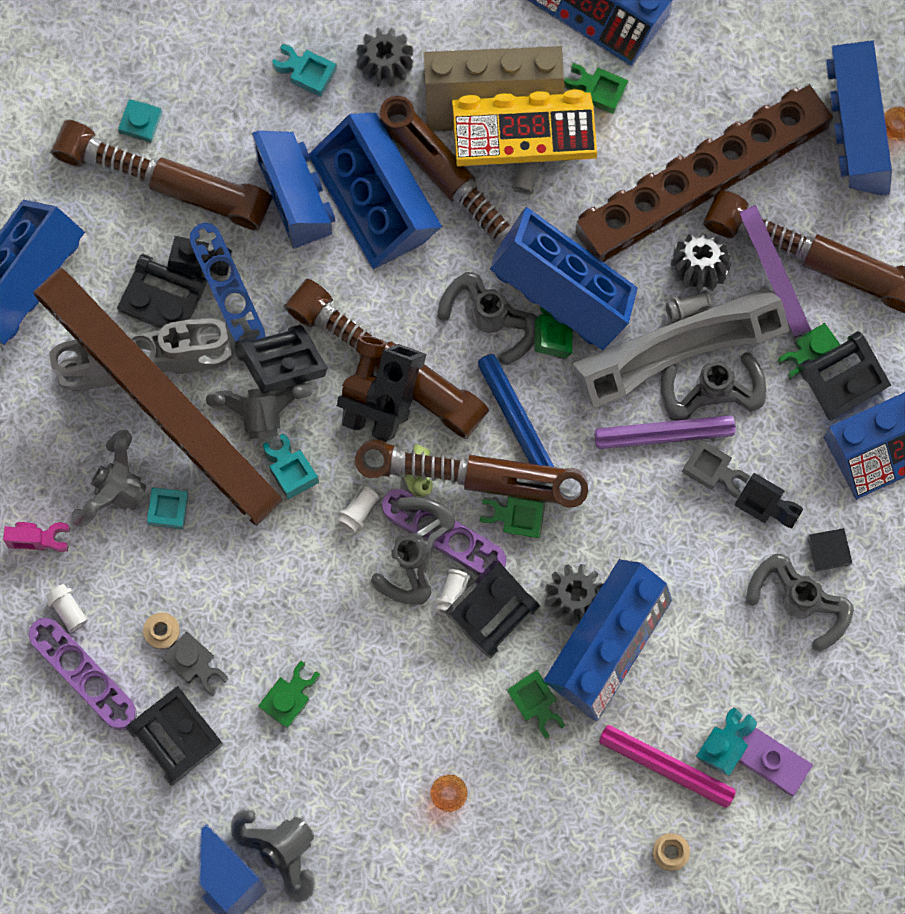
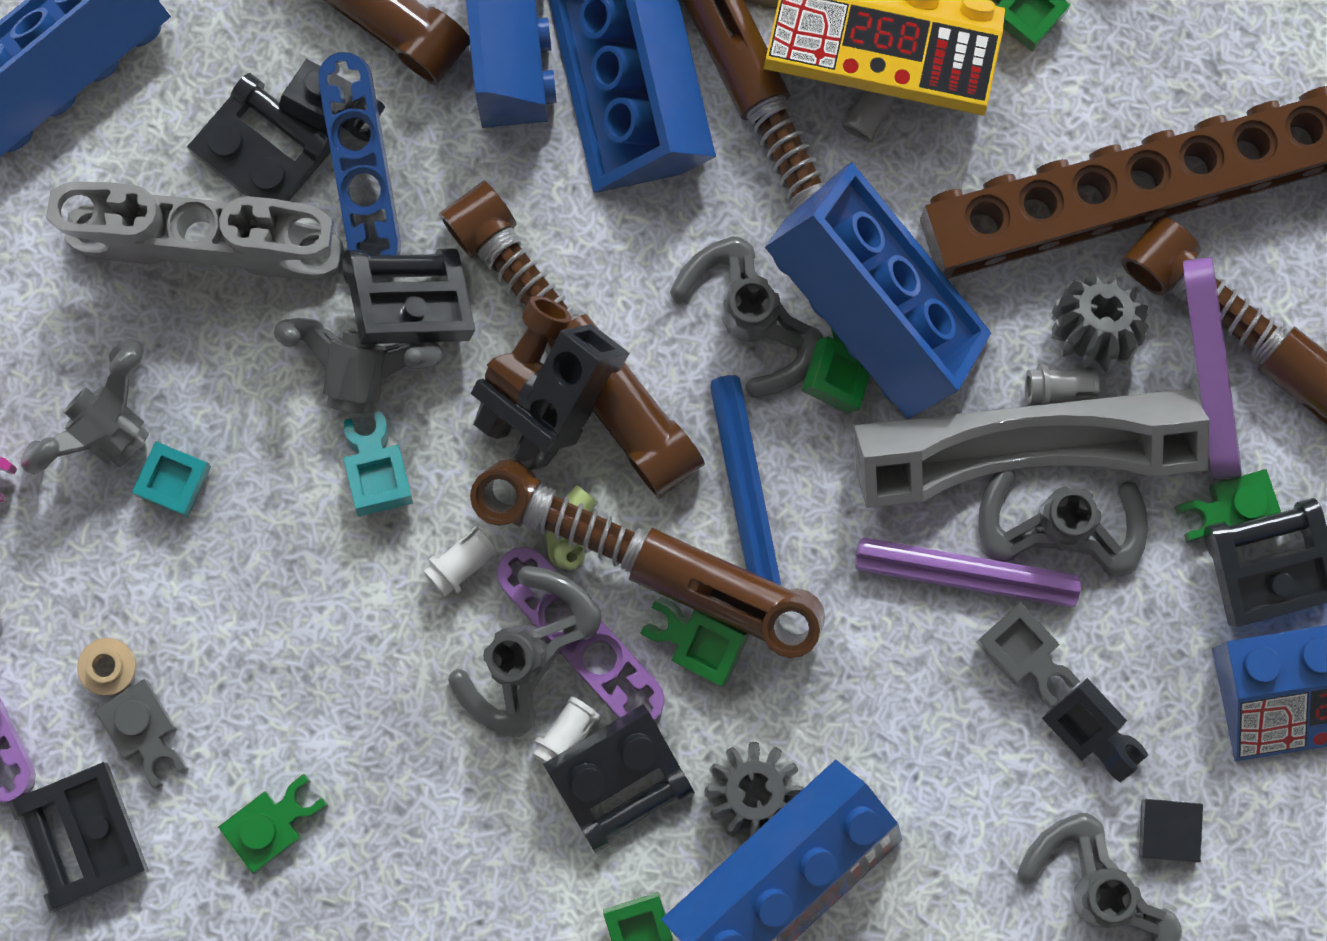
camera: 15 degrees right, 5 degrees up
(157, 395) = (191, 302): reddish brown beam -> none

